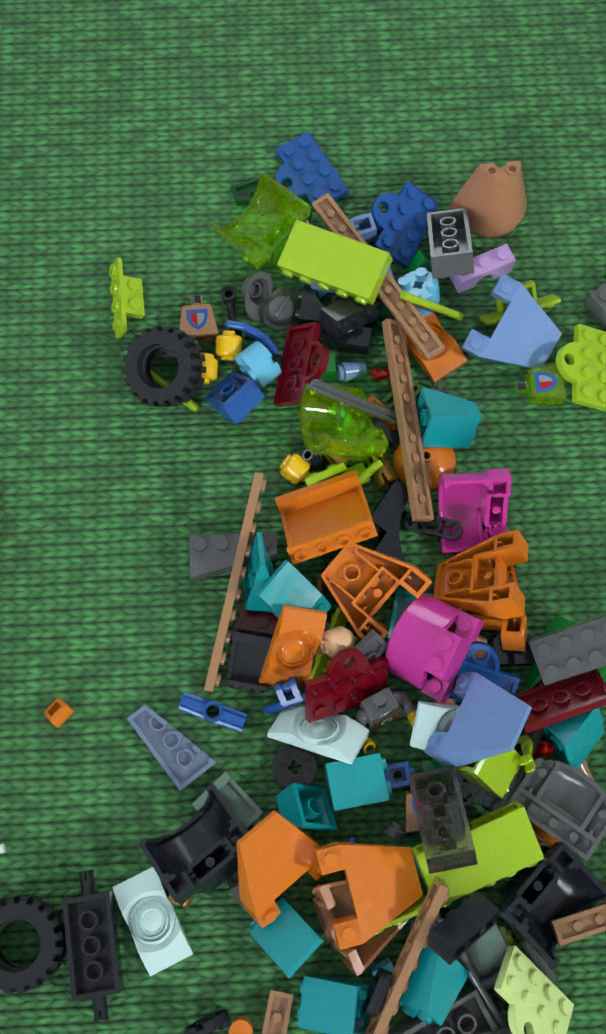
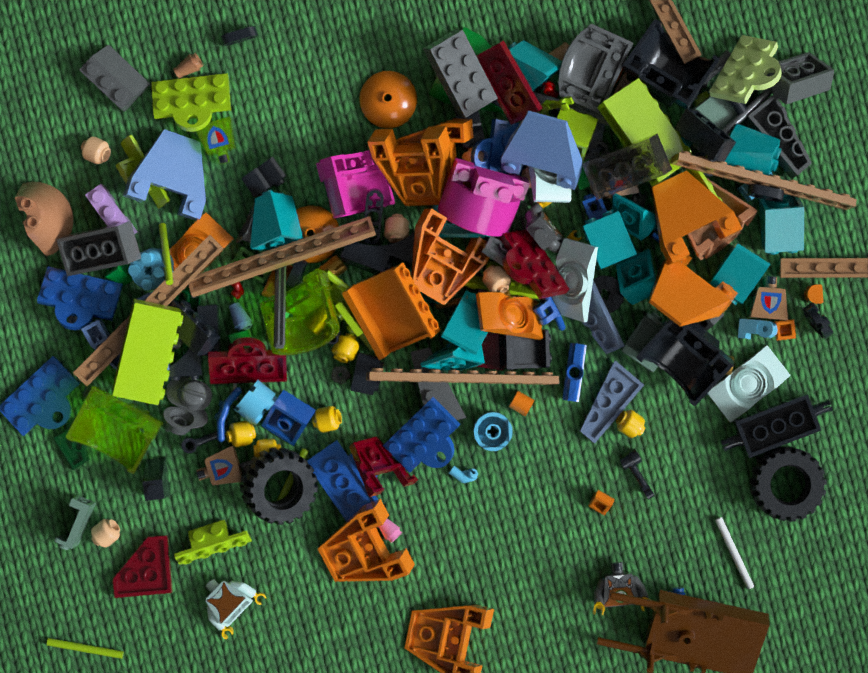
camera: 100 degrees left, 15 degrees up
(51, 165) = (85, 648): none -> lime bar
(58, 300) = (228, 602): none -> torso
(72, 440) = (359, 552): none -> orange wedge
(89, 475) = (390, 530): none -> bright pink cone
(95, 757) = (630, 461): none -> black brick
(112, 232) = (146, 571): none -> dark red plate
(127, 566) = (464, 476): none -> medium azure arm
(139, 765) = (630, 423): none -> yellow head
(154, 441) = (340, 479): none -> blue plate
(160, 202) = (105, 533): none -> light nougat head
(162, 595) = (501, 438): none -> medium azure brick
(169, 470) = (374, 460): none -> dark red wing
(179, 529) = (424, 437): none -> blue plate
(184, 183) = (85, 509): none -> sand green panel
(192, 645) = (521, 403): none -> orange brick
(200, 254) = (156, 479): none -> black slope
(206, 980) = (786, 329): none -> orange brick
(213, 952) = (764, 328): none -> medium azure leg
(223, 435) = (327, 419): none -> yellow head
(244, 968) = (769, 301): none -> medium nougat torso
(261, 754) = (602, 324): none -> sand blue wing
(268, 454) = (345, 374): none -> clear smoke plate
(274, 486) = (364, 365): none -> black brick
(378, 819) = (636, 218): none -> teal slope
(415, 548) = (396, 228): none -> light nougat head
(495, 424) = (264, 177): none -> black brick
(549, 266) = (95, 150): none -> light nougat head
(551, 582) = (390, 113): none -> orange dish

